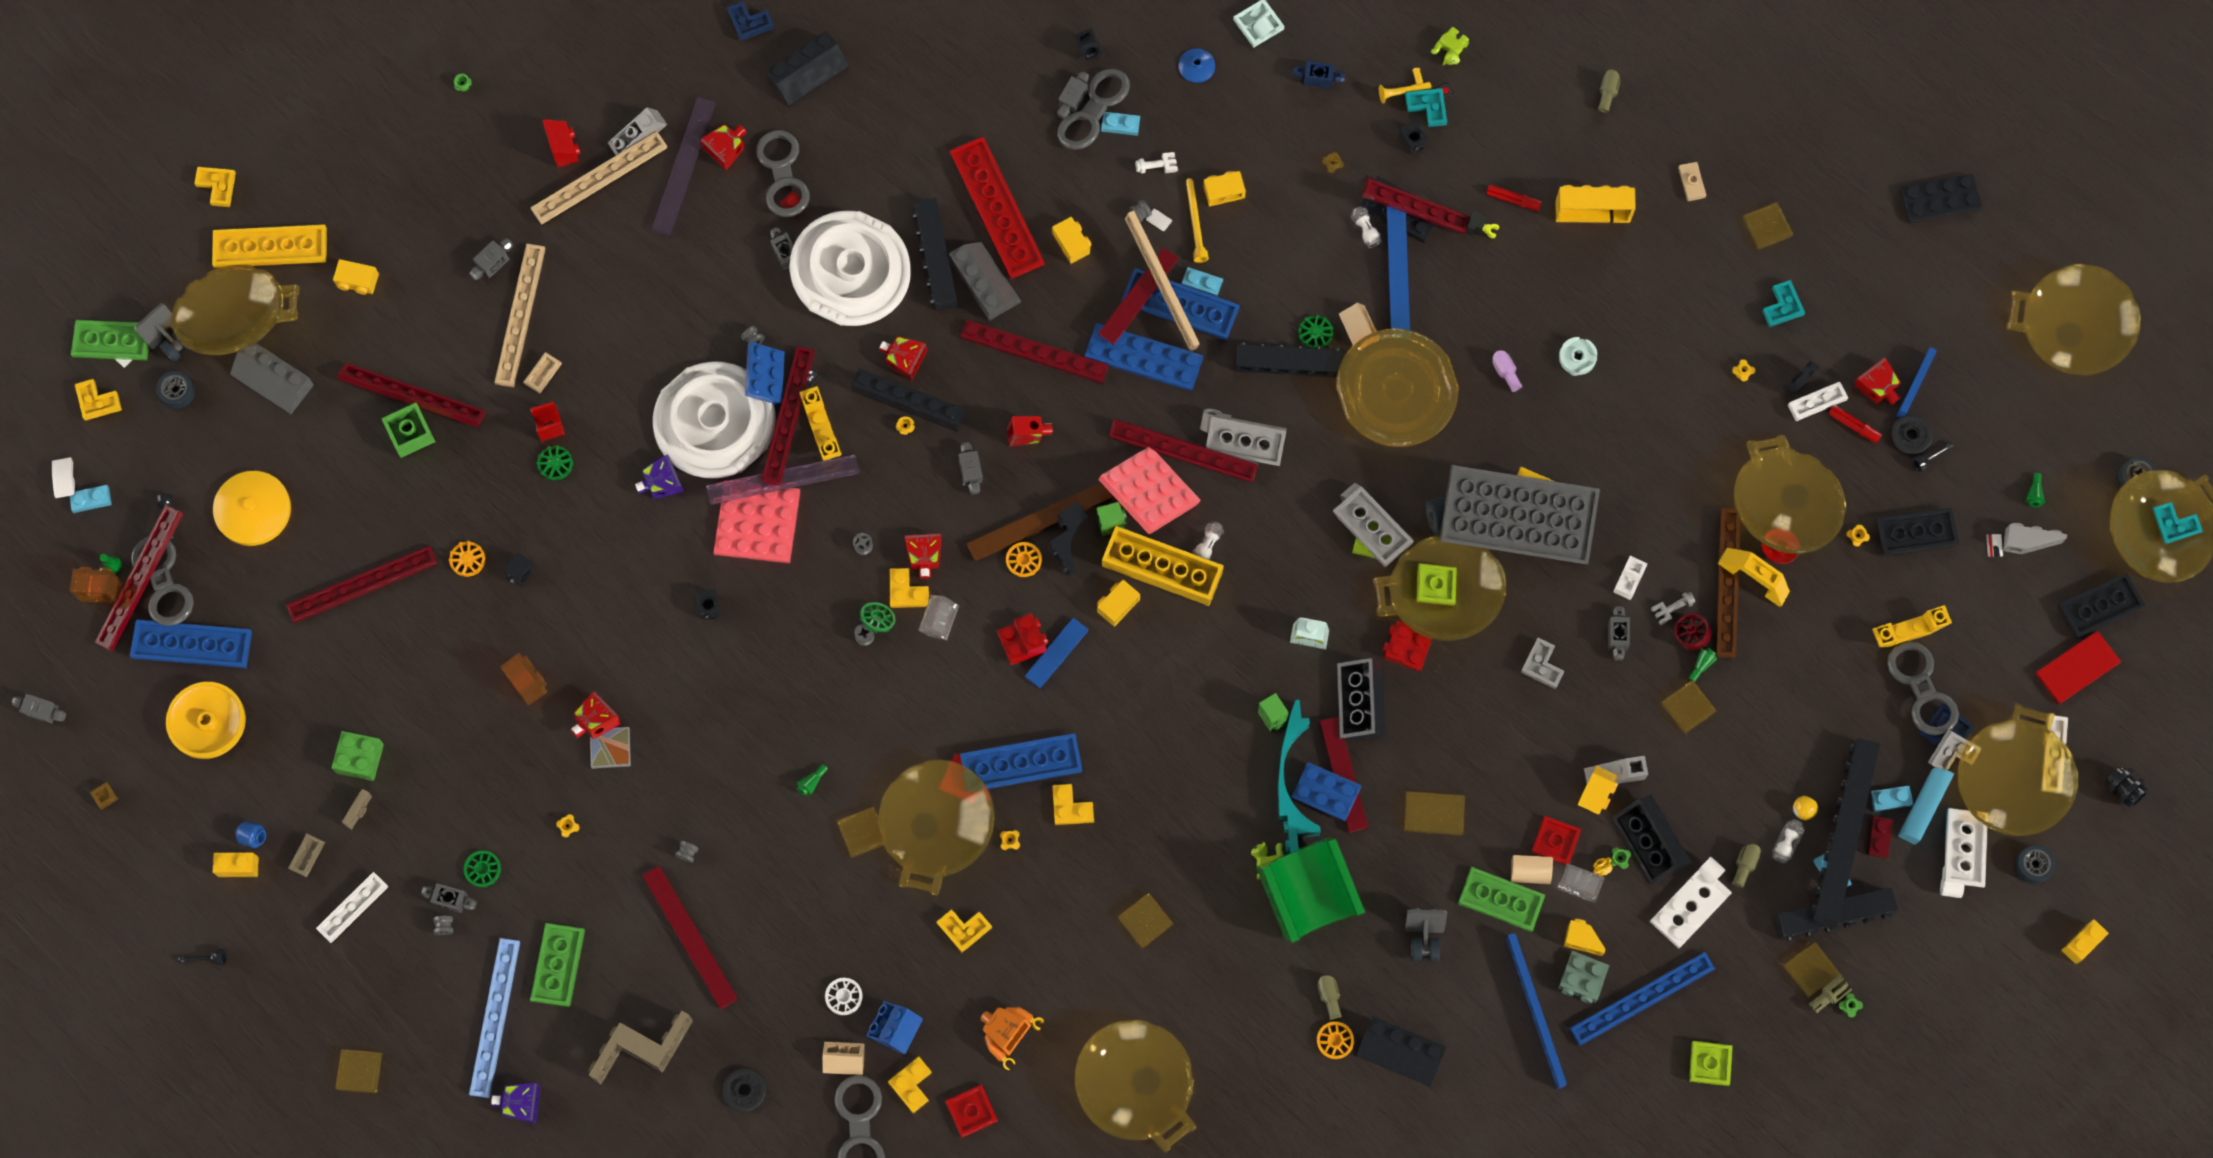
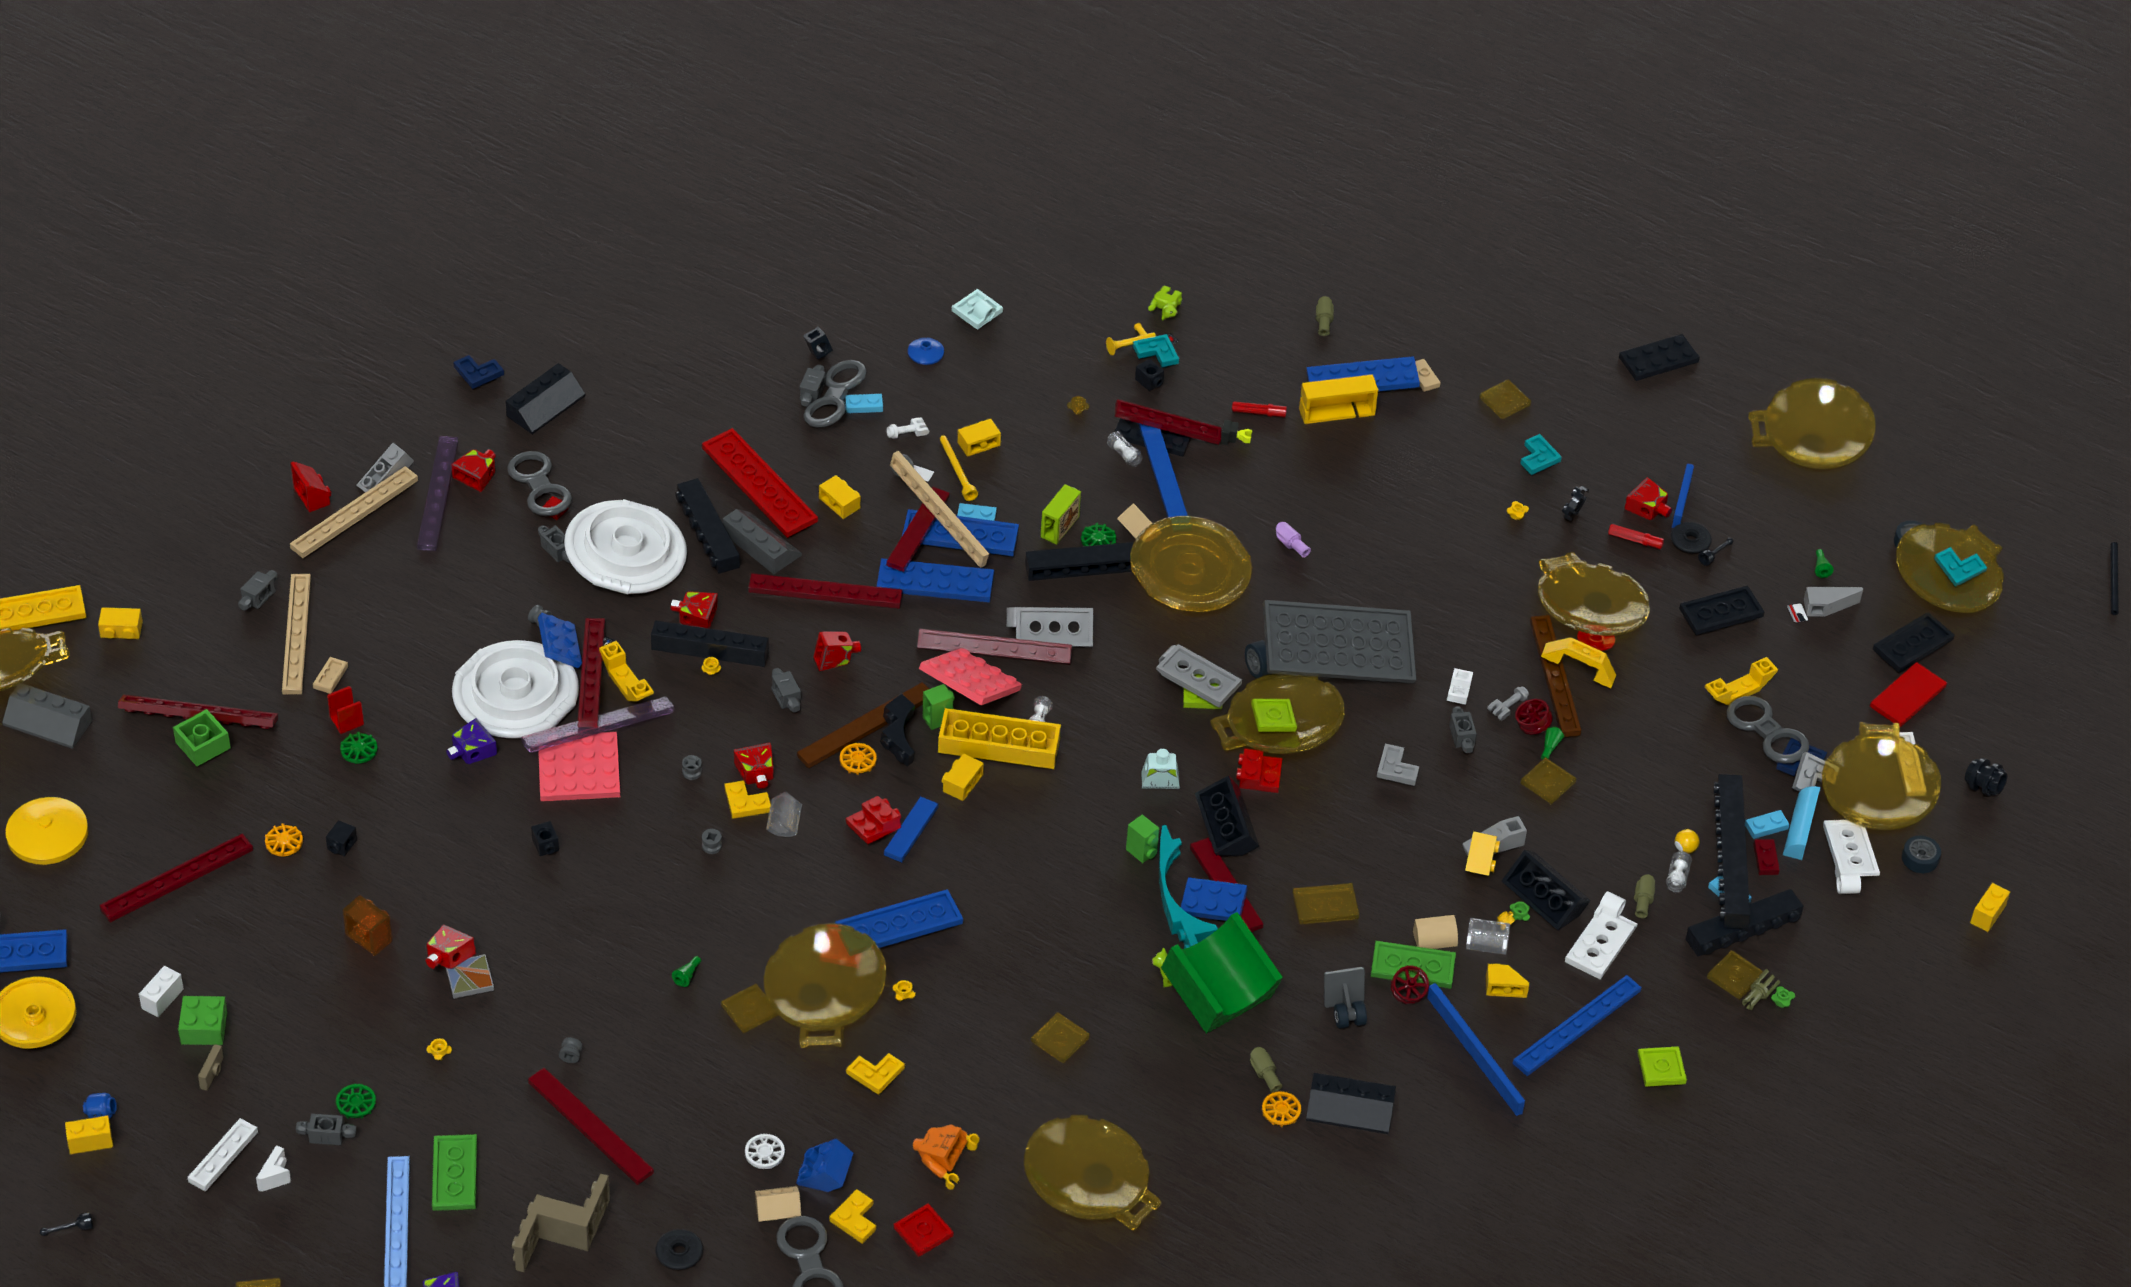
camera: 15 degrees left, 25 degrees down
(306, 855) = (163, 1117): dark tan plate -> none
(325, 716) = (161, 991): none -> white brick
(390, 938) = (273, 1172): none -> white slope
(443, 925) = (324, 1154): dark grey wheel -> none
(462, 78) = (198, 455): bright green plate -> none
(877, 617) = (722, 822): green wheel -> none
(1068, 812) = (958, 959): yellow plate -> none
(1282, 303) = (1060, 514): none -> lime brick
(1318, 67) = (1045, 339): dark blue piece -> none
(1490, 927) = (1410, 984): none -> dark red wheel
(1556, 840) = (1453, 903): red tile -> none
(1581, 346) = (1353, 528): light aqua plate -> none
(1583, 977) = (1514, 1015): sand green plate -> none
(1646, 175) = (1388, 373): none -> blue plate
(1817, 401) = (1595, 523): white plate -> none
(1859, 529) = (1667, 621): yellow plate -> none

